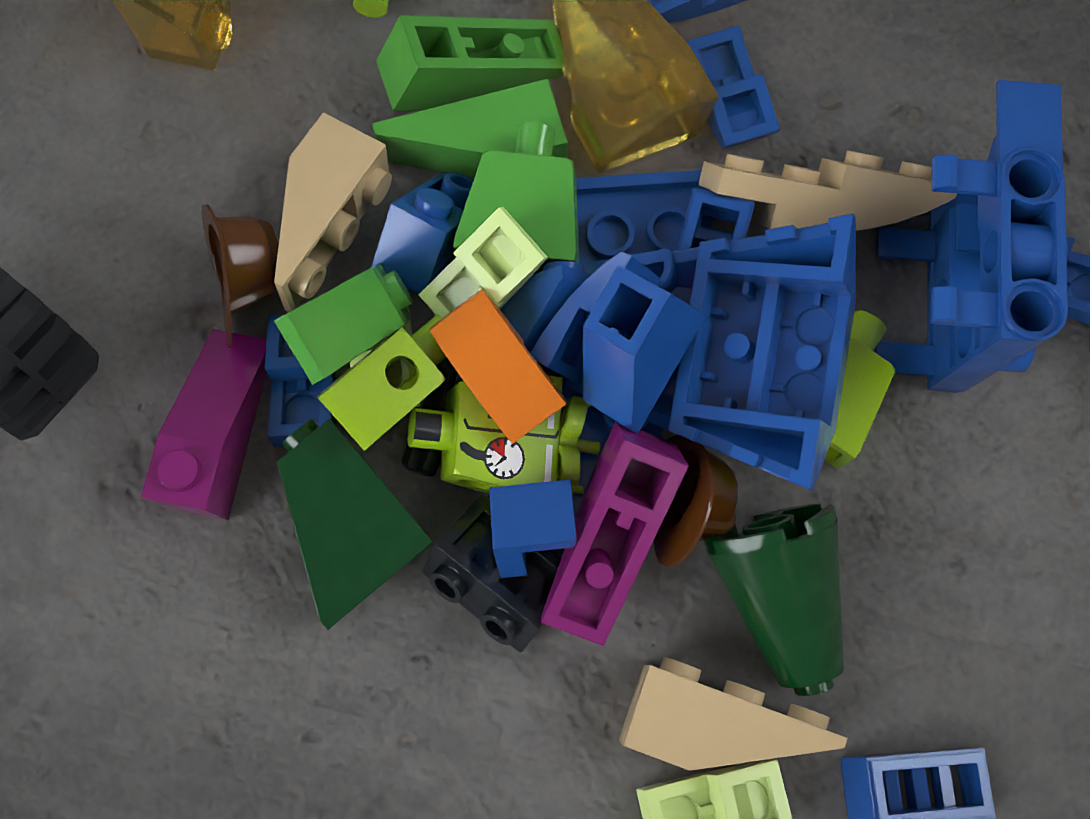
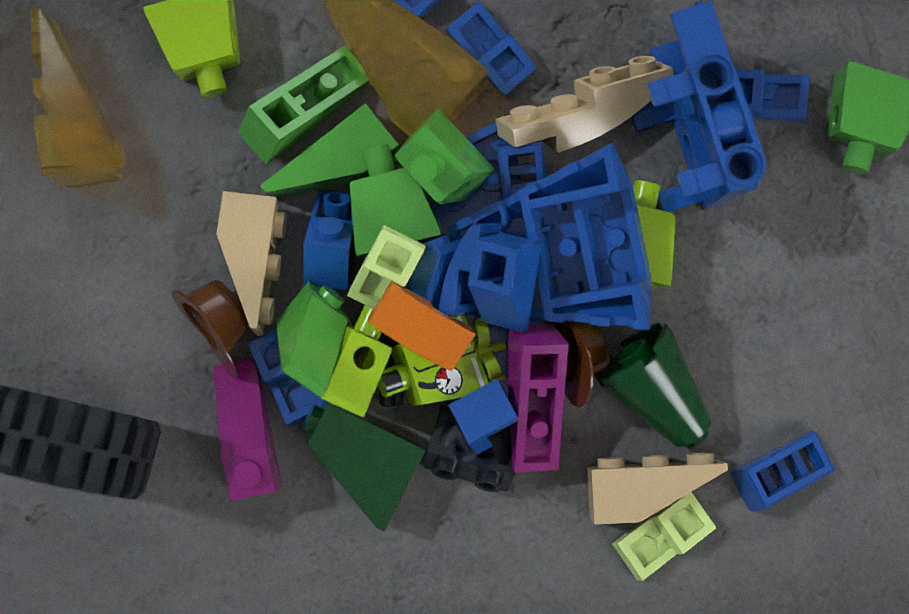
camera: 20 degrees left, 10 degrees up
(615, 167) = (444, 160): none -> bright green torso

